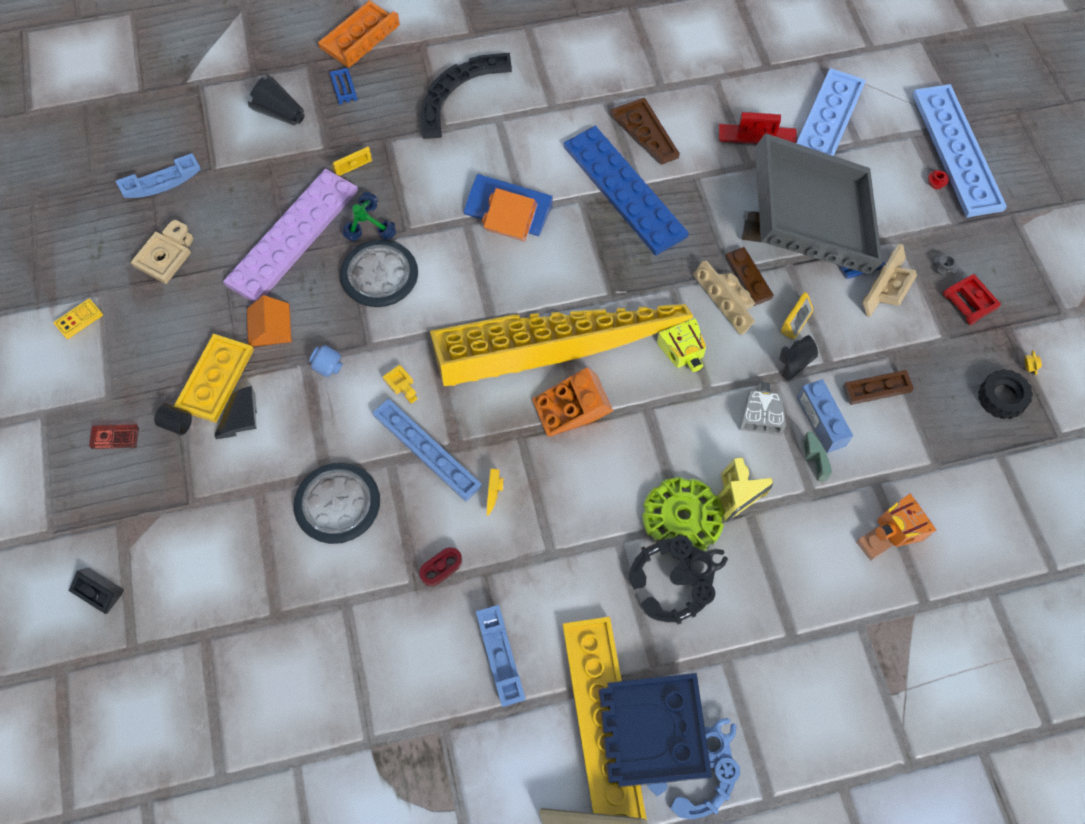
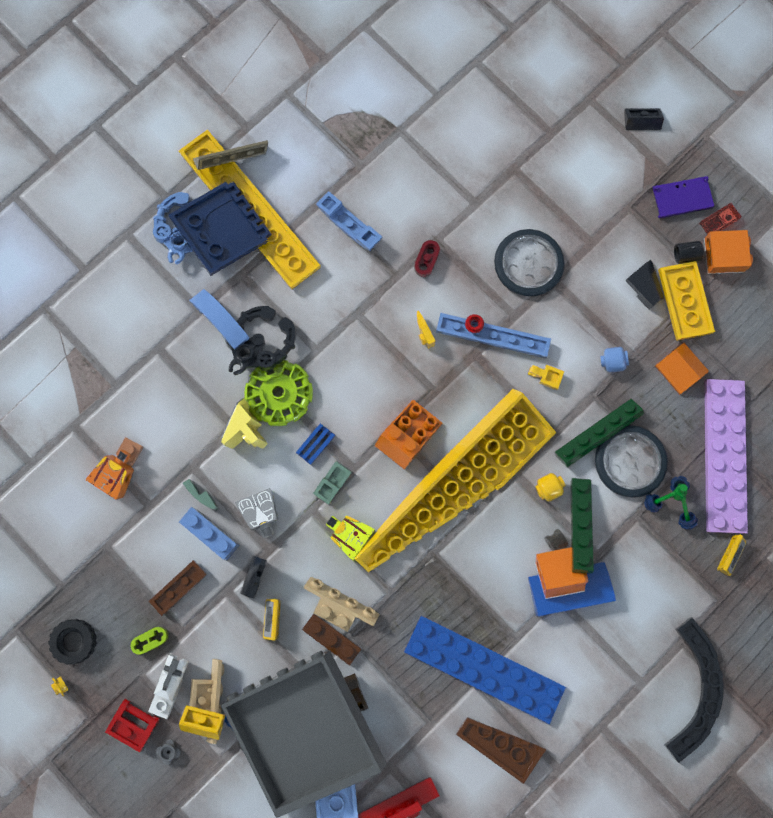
camera: 150 degrees right, 15 degrees up
(136, 397) = (728, 251): none -> orange piece
(136, 480) = (677, 199): none -> dark purple door
(389, 308) = (599, 432): none -> dark green plate
(436, 459) = (474, 318): none -> red plate
(464, 239) = (581, 526): none -> dark green plate
(469, 287) = (550, 487): none -> yellow head
(495, 244) = (556, 540): none -> clear smoke wheel
(669, 438) = (312, 447): none -> blue tile
(675, 402) = (332, 482): none -> sand green slope
(710, 626) = (220, 318): none -> medium blue slope
(905, 262) = (202, 722): none -> yellow slope
(923, 310) = (168, 686): none -> white plate
(925, 358) = (151, 644): none -> lime beam

